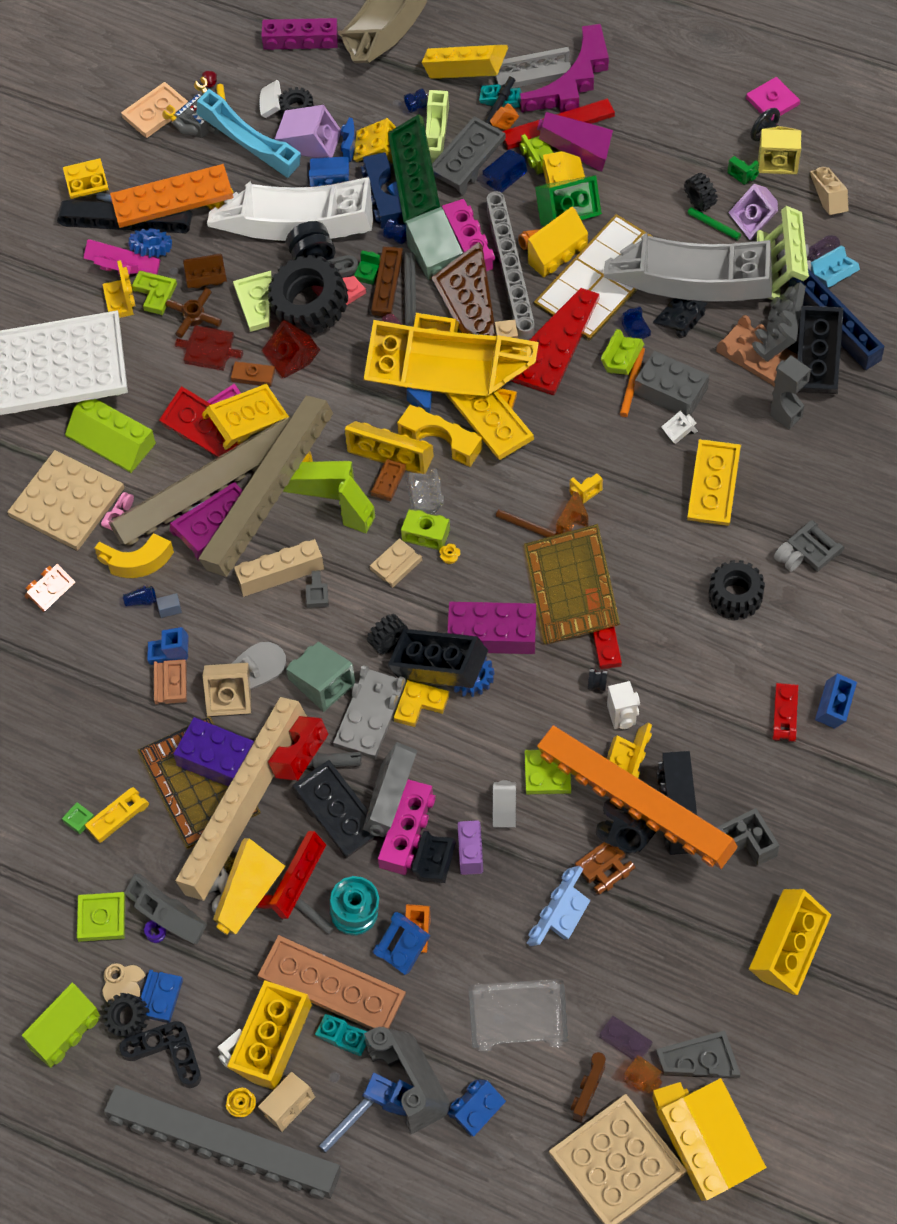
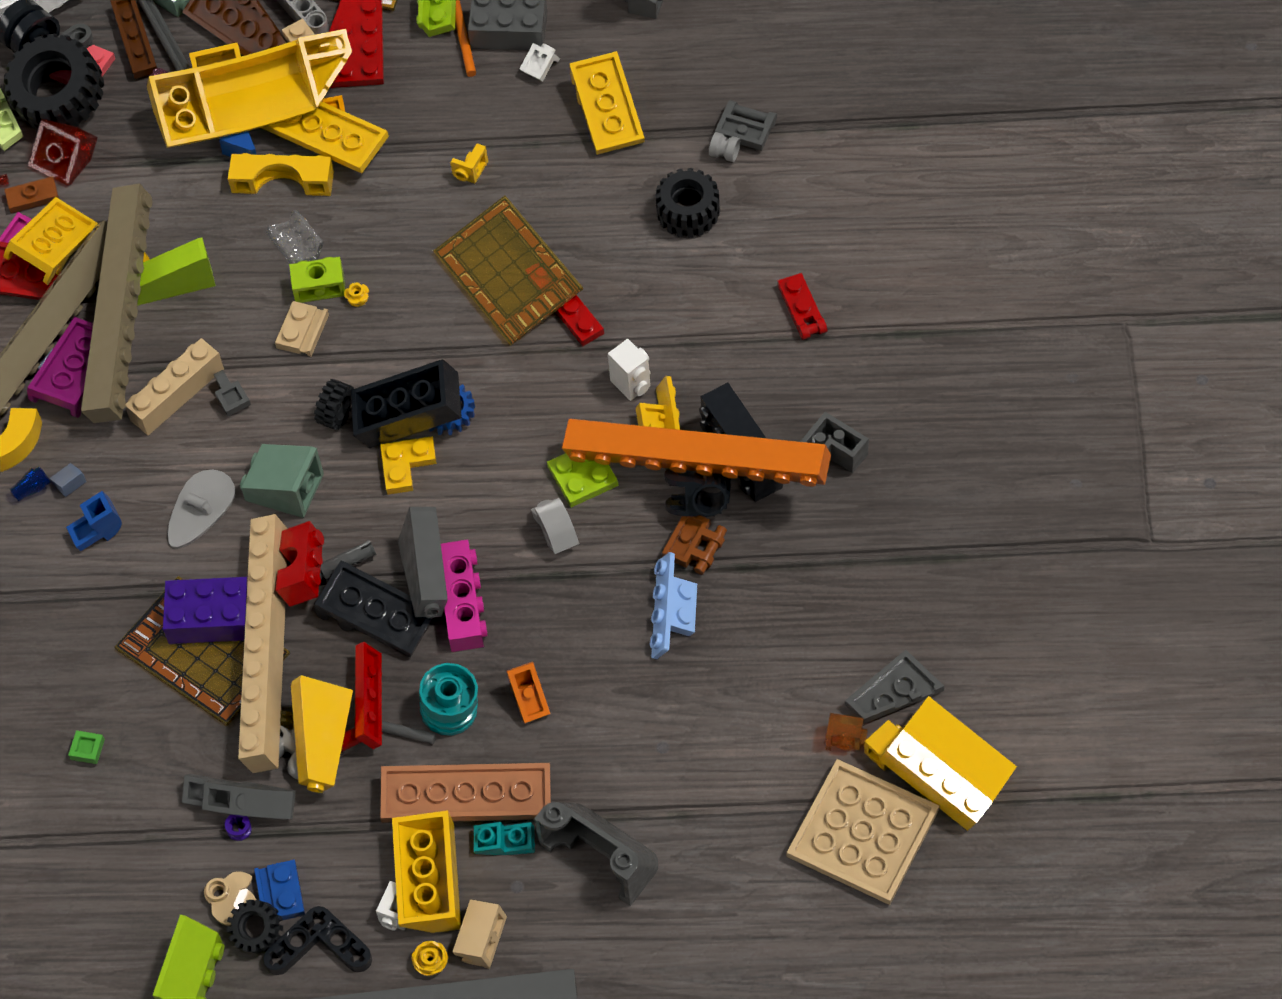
camera: 25 degrees left, 0 degrees up
(101, 916) = (169, 838): lime plate -> none
(116, 815) = (128, 725): yellow plate -> none
(170, 682) = (114, 558): nougat plate -> none
(227, 689) = (184, 538): tan slope -> none
(345, 1124) = (556, 925): sand blue bar -> none
(355, 506) = (229, 285): lime slope -> none
(368, 267) = (104, 29): green bracket -> none
(369, 712) = (356, 496): light grey hinge -> none
(383, 444) = (230, 210): yellow slope -> none
(387, 1093) = (590, 874): blue brick -> none
(388, 480) = (248, 244): dark orange plate -> none
(408, 946) = (528, 718): blue plate -> none
(433, 858) = (507, 614): black bracket -> none
(470, 847) = (541, 585): medium lavender brick -> none
(476, 1106) = (686, 844): blue bracket -> none
(500, 626) = (462, 340): magenta brick -> none
(518, 1013) = (683, 729): clear windscreen -> none
(525, 524) = (400, 230): reddish brown bar -> none
(573, 513) = (472, 196): clear orange slope -> none
(588, 1085) = (793, 768): reddish brown plate -> none
(597, 679) = (587, 356): black wheel -> none
(625, 1038) = (806, 706): clear purple plate -> none
(790, 941) = (926, 531): yellow slope -> none
(836, 701) = (850, 271): blue brick -> none

